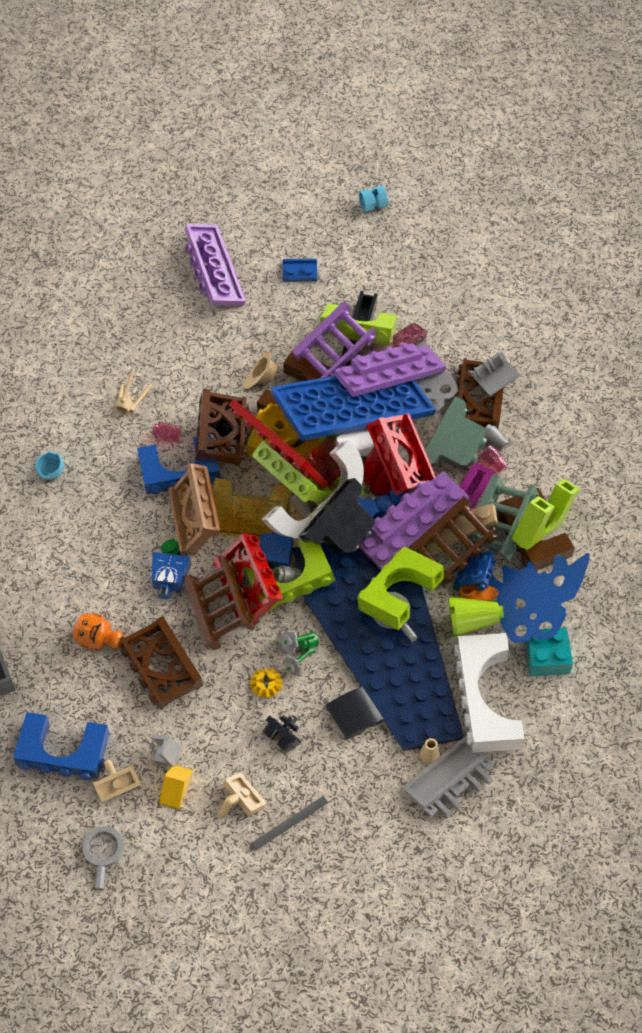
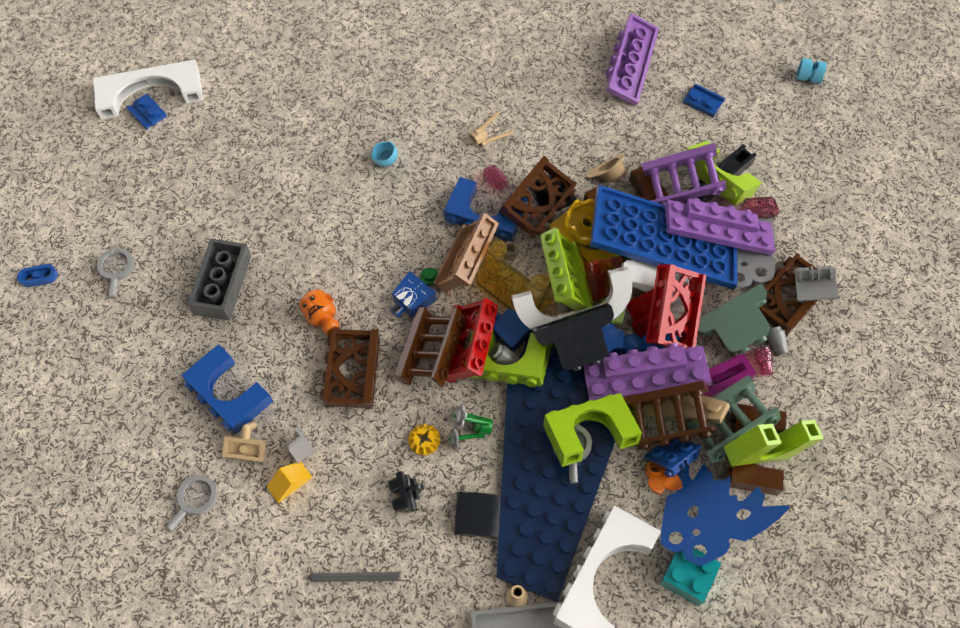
camera: 35 degrees right, 5 degrees up
(241, 793) = (333, 525): tan plate -> none
(278, 444) = (570, 246): red wing -> none
(472, 615) = (641, 494): lime cone -> none

